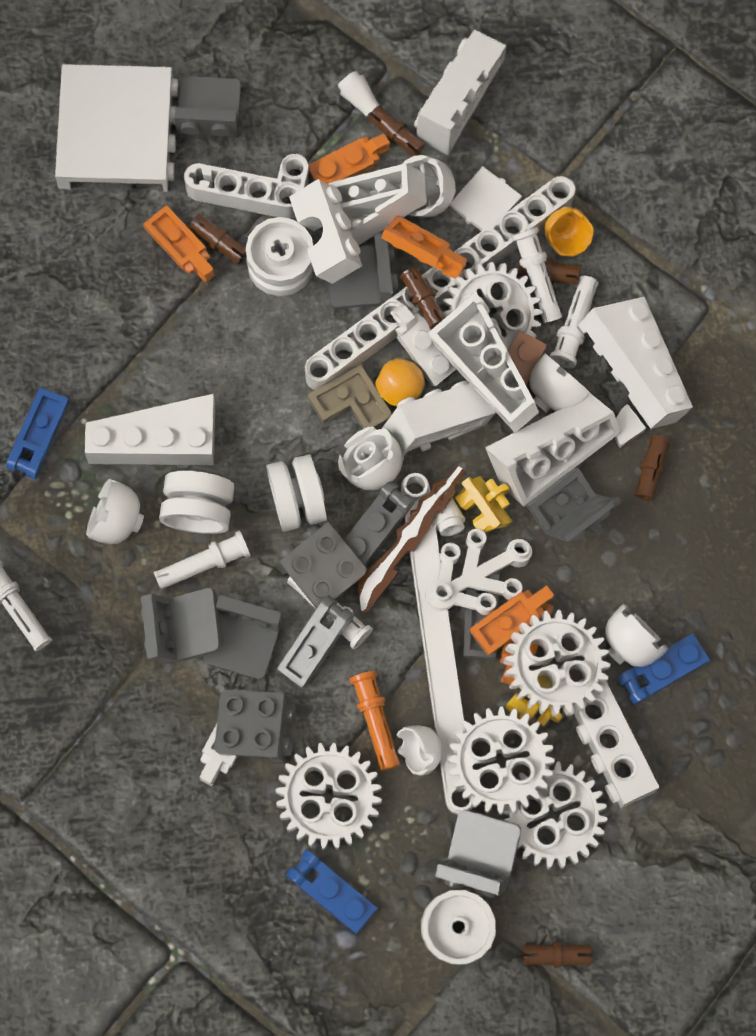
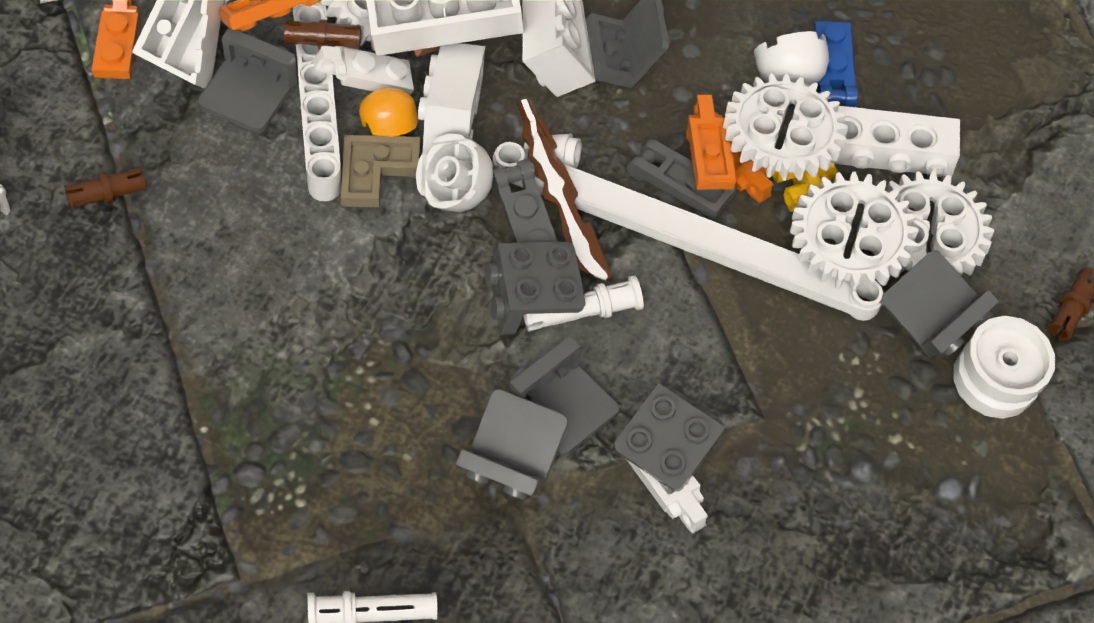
camera: 60 degrees left, 15 degrees down
(38, 432) = (185, 476): blue plate -> none
(115, 514) = (337, 445): white cylinder -> none
(155, 436) = (281, 358): white wedge -> none
(179, 243) = (81, 224): orange hinge -> none
(196, 502) = (387, 353): white wheel -> none
(216, 555) = (453, 377): white pin -> none
(246, 184) = (102, 105): white beam -> none
(279, 256) = (173, 139): white wheel -> none
(301, 491) = (445, 256): white wheel -> none
(315, 642) = (617, 331): plate -> none
(325, 825) = (821, 433): white gear -> none
(332, 892) = (894, 471): blue plate -> none
(336, 251) = (154, 66): white arch -> none
(372, 705) = (714, 323): orange pin -> none
(420, 749) = (793, 301): white hair -> none
(475, 576) = (643, 189): white plant -> none
(490, 501) = (587, 111): yellow hips -> none

